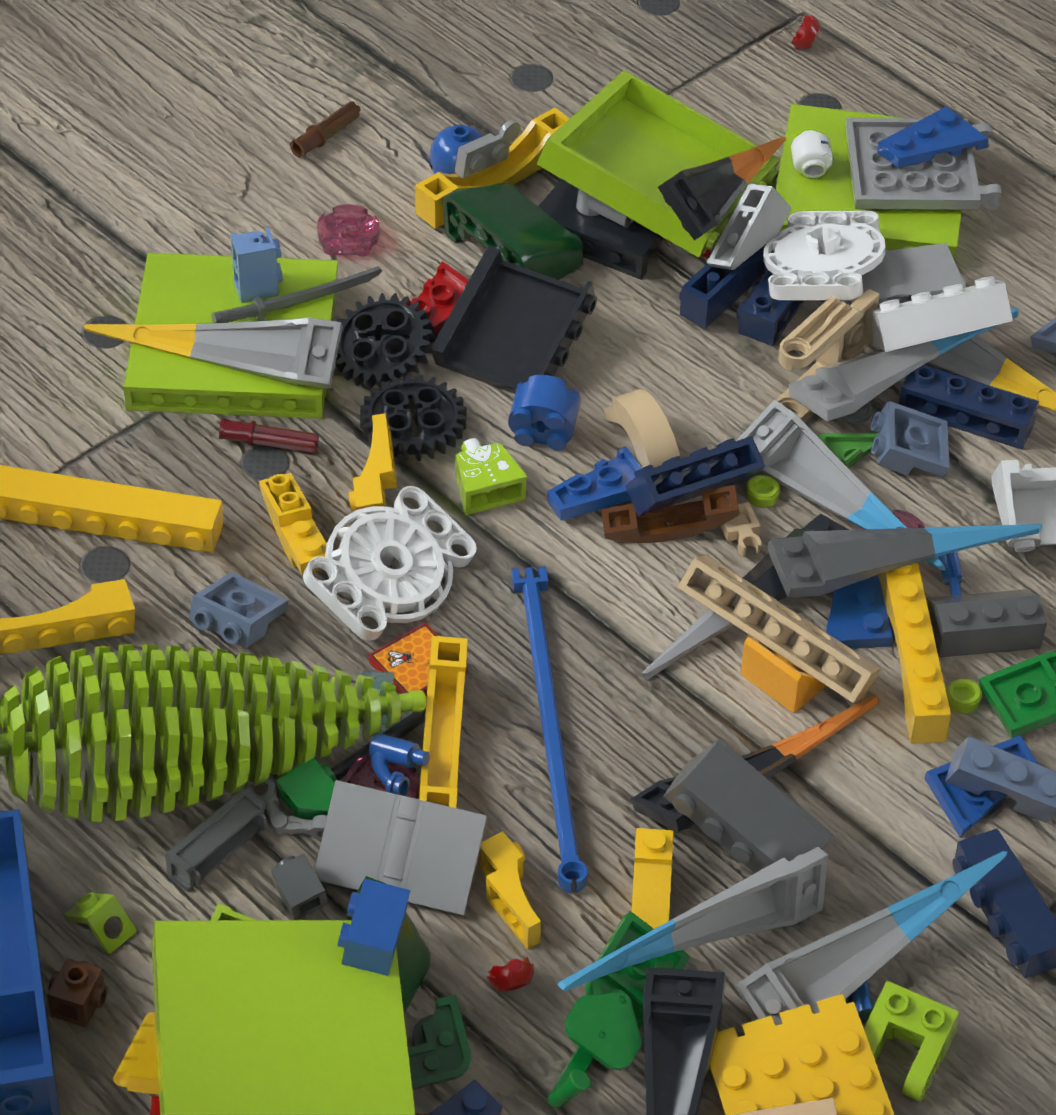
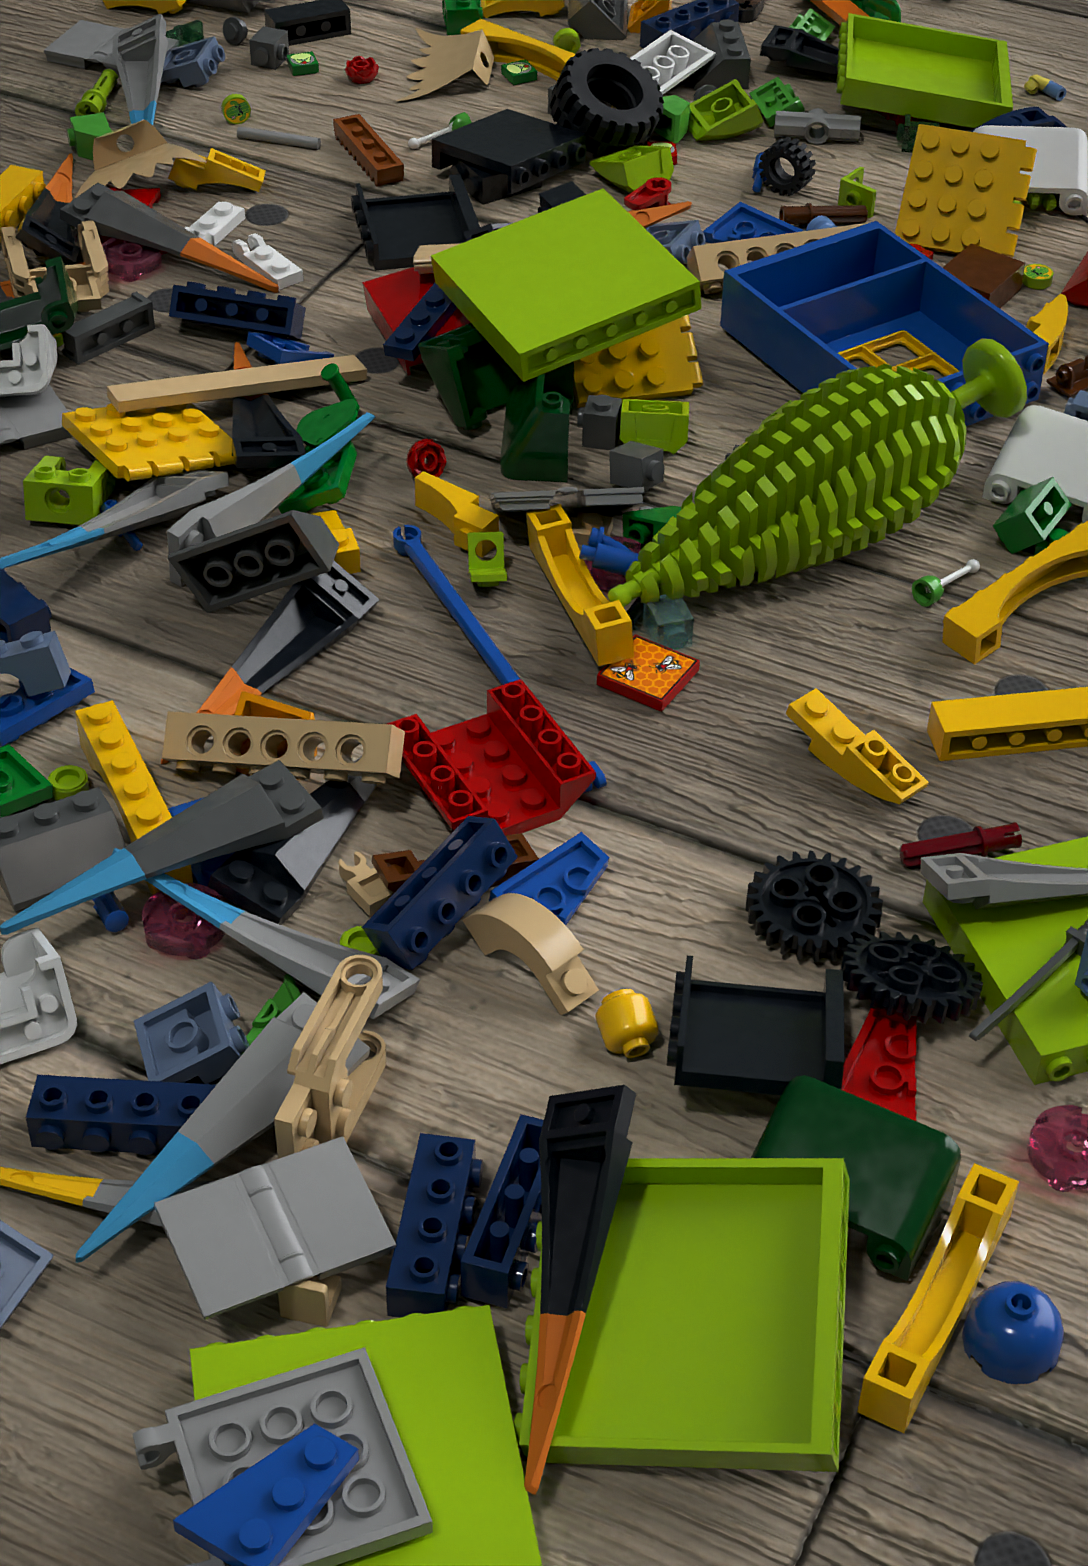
camera: 160 degrees right, 5 degrees down
(76, 992) = (763, 370): reddish brown brick -> none
(236, 609) = (853, 659): sand blue plate -> none
(374, 927) = (527, 323): blue brick -> none
(378, 471) = (798, 798): yellow slope -> none
(378, 539) = (709, 740): white piece -> none
(486, 150) = (953, 1289): light grey hinge -> none
(487, 477) = (686, 859): lime torso -> none
(512, 805) = (486, 572): none -> lime bracket
(544, 412) = (659, 928): blue brick -> none
(597, 371) = (627, 1023): none -> yellow head
(611, 597) = (499, 764): none -> red slope
(751, 226) = (499, 1209): light grey slope -> none
(811, 154) = (462, 1423): white head -> none
(824, 255) = (346, 1221): white piece -> none
(940, 315) = (177, 1149): white slope -> none

